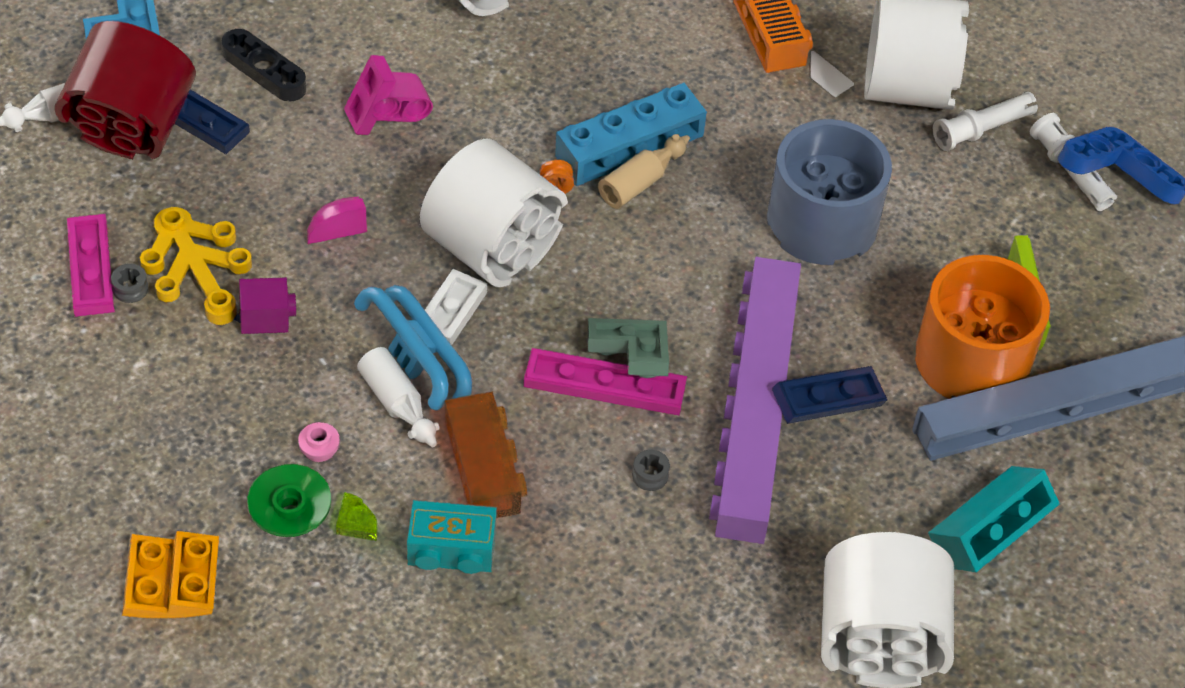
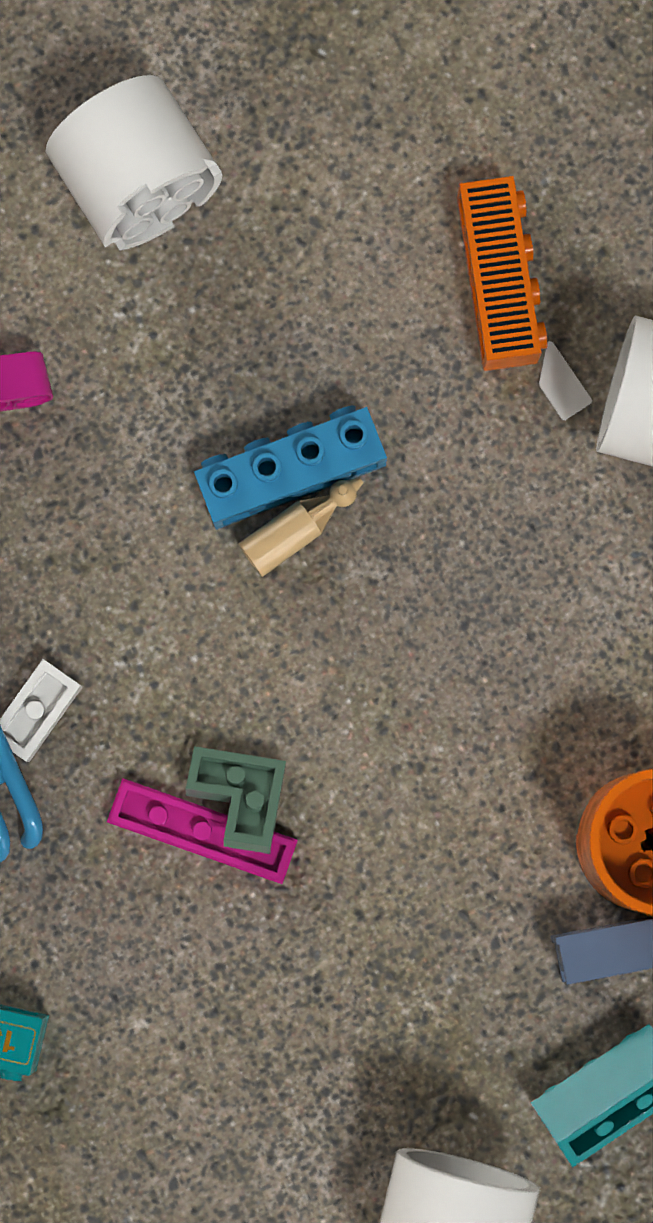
camera: 15 degrees right, 30 degrees up
(484, 454) = (44, 931): clear orange brick -> none
(492, 211) = (91, 606): white brick -> none
(559, 174) = (189, 526): orange bush -> none
(643, 461) = (219, 966): dark grey bush -> none
(754, 411) = (374, 885): medium lavender brick -> none
(828, 191) = (549, 597): sand blue brick -> none
(829, 394) = (456, 898): dark blue tile -> none

